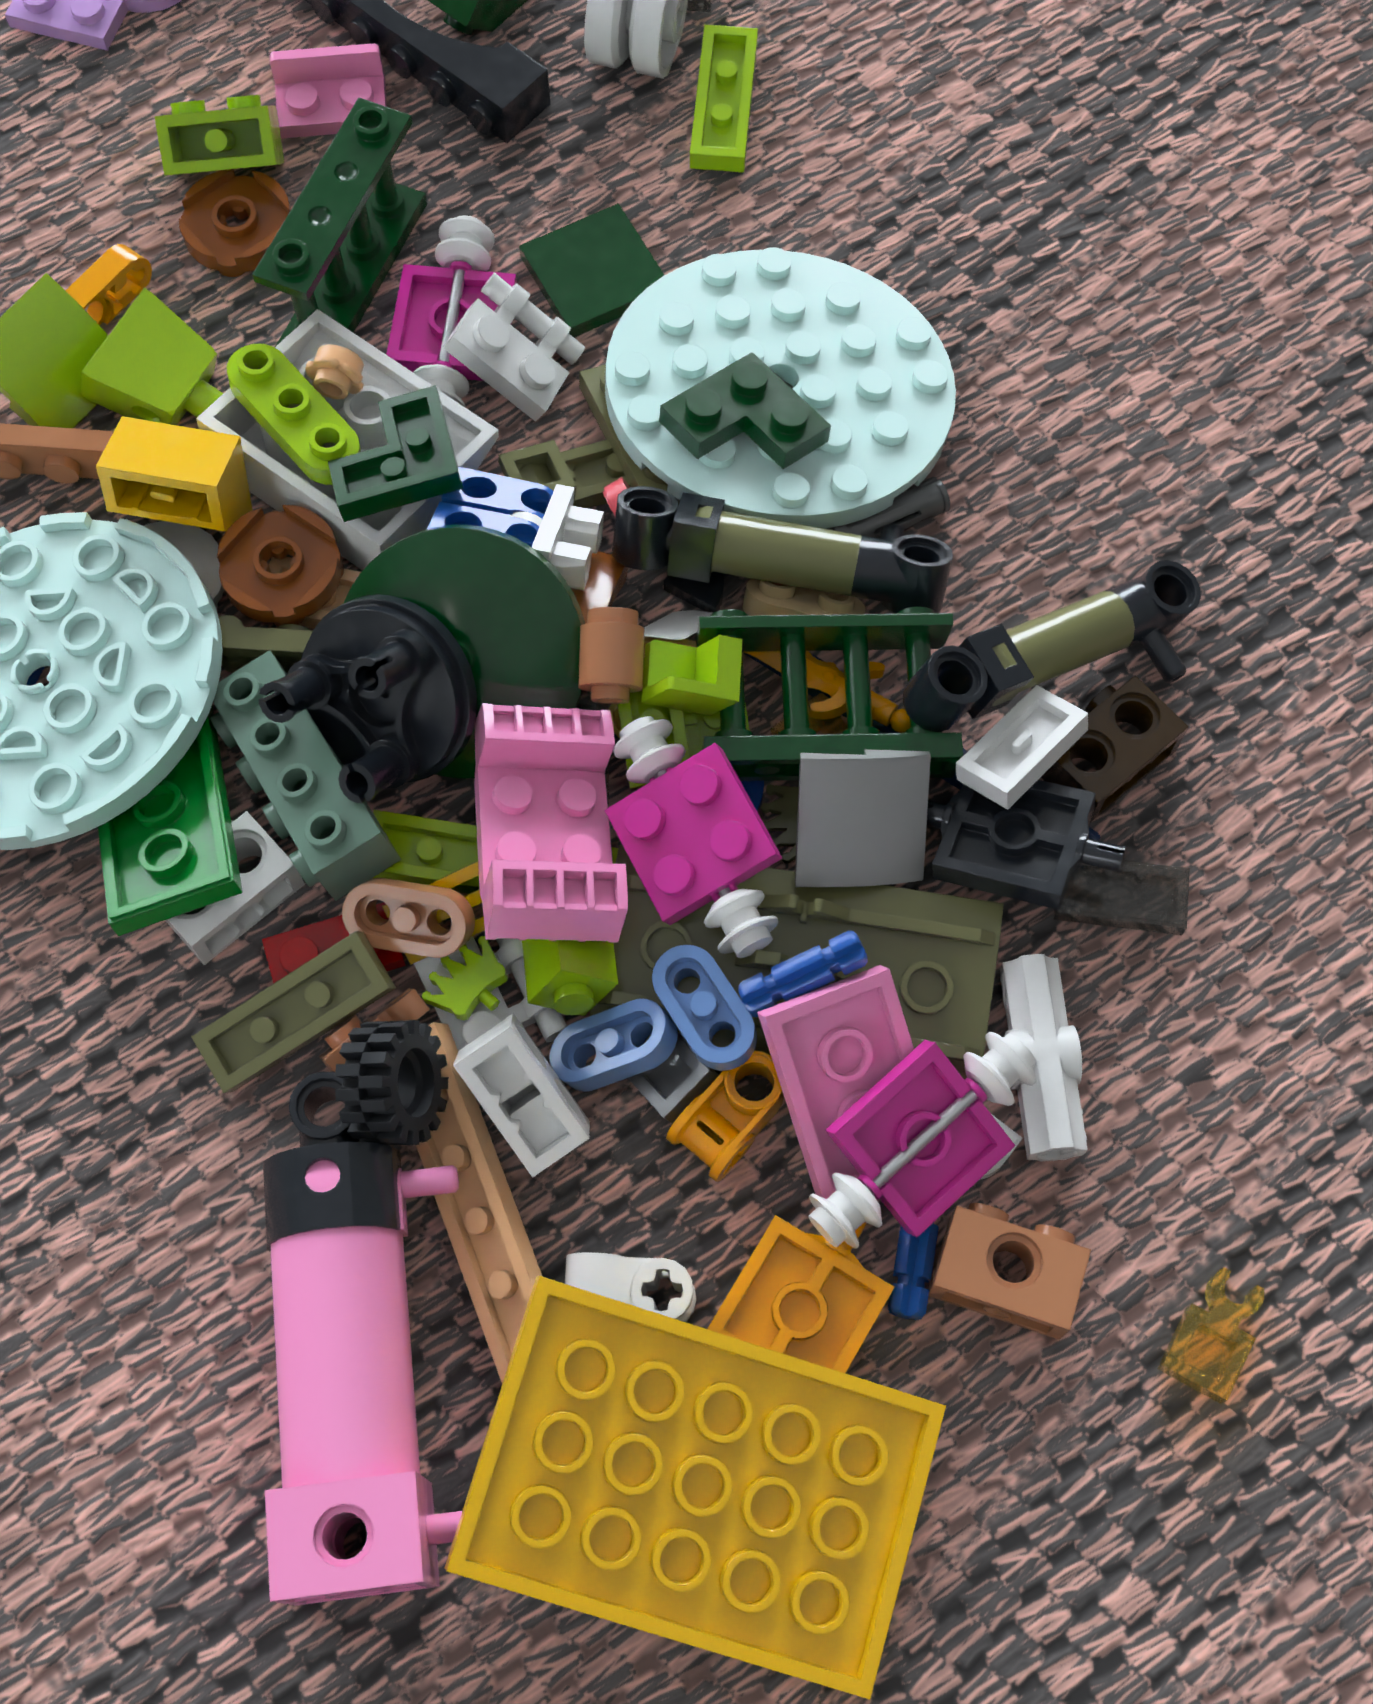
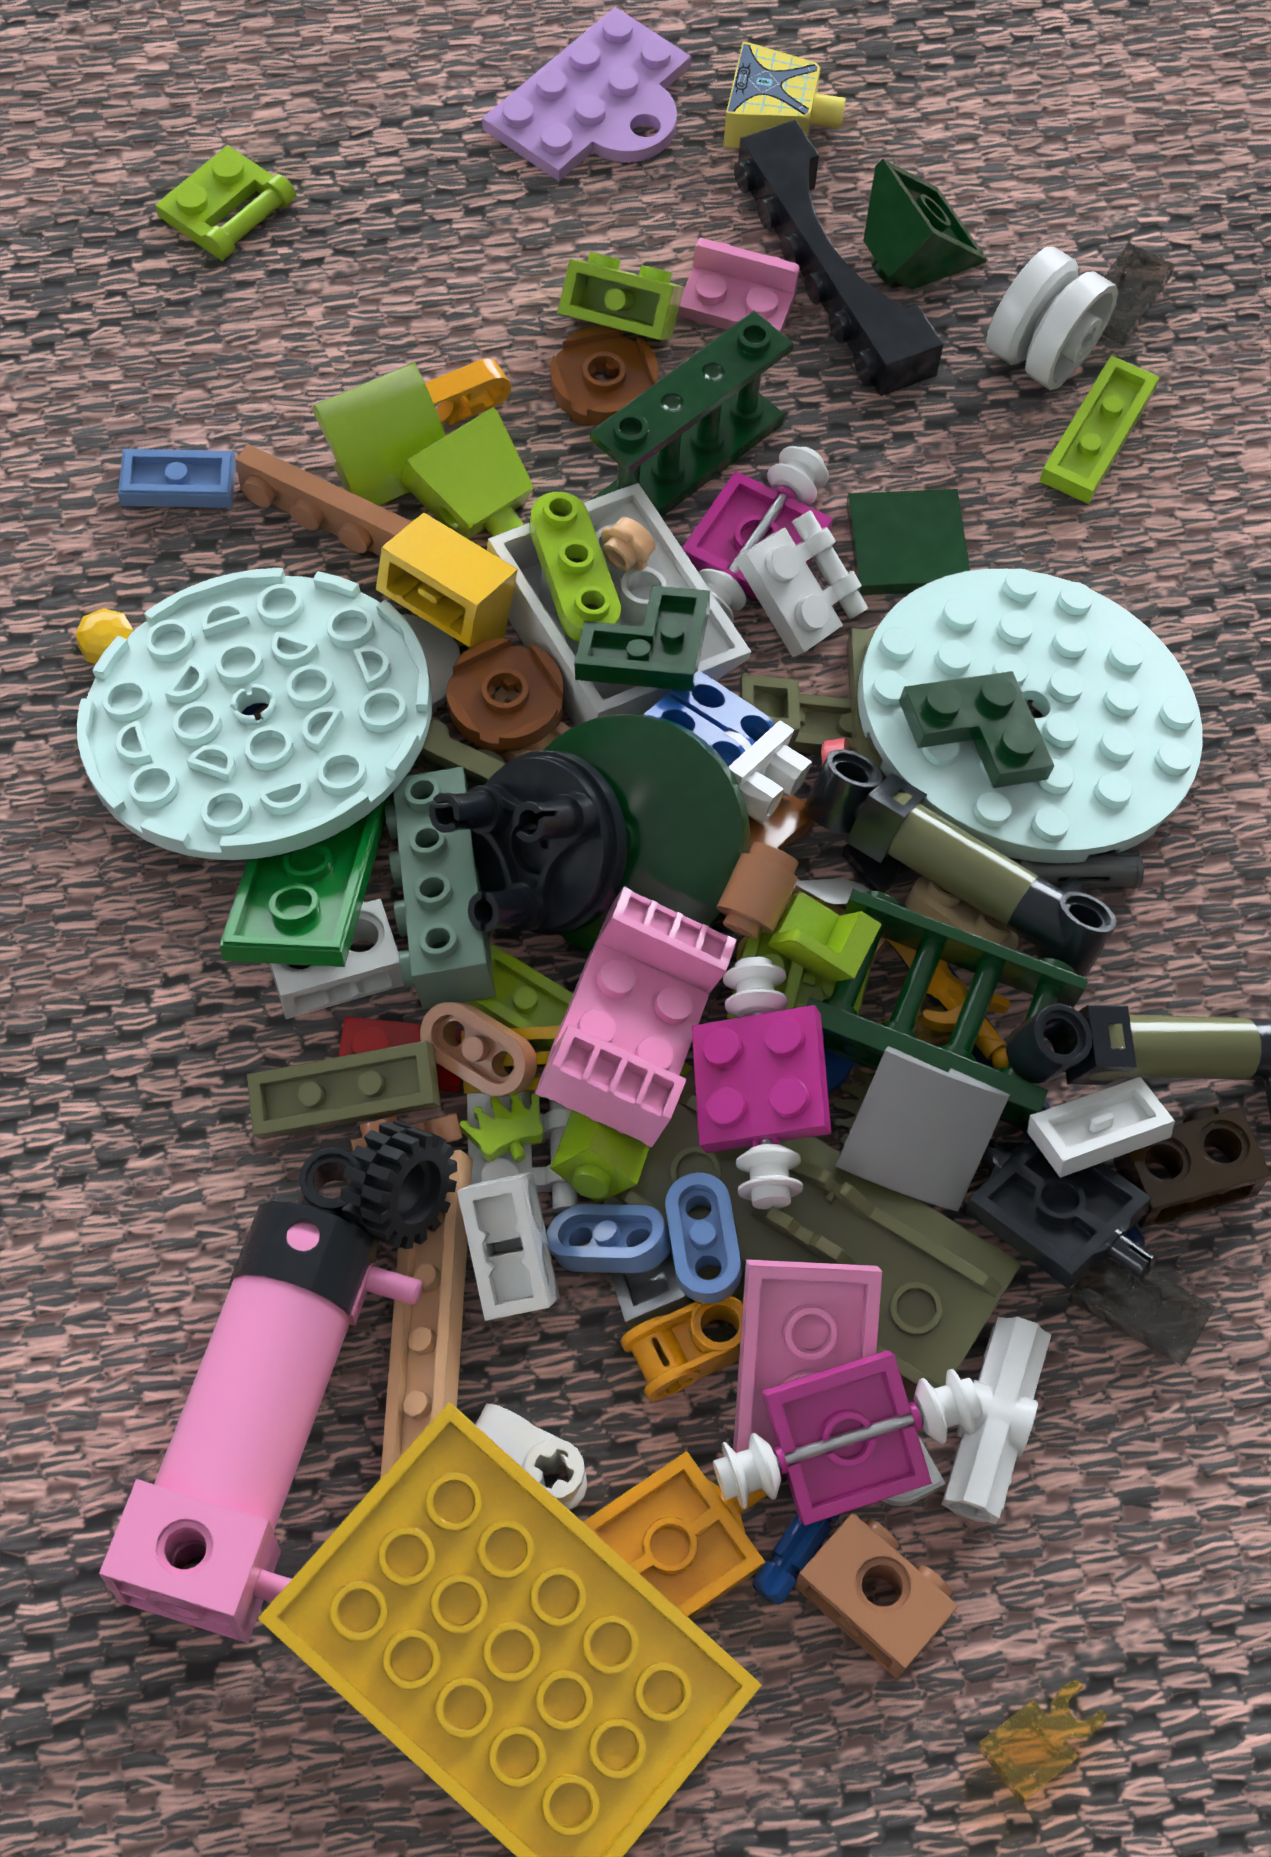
camera: 20 degrees right, 5 degrees down
(803, 973) = (804, 1243): blue axle -> none

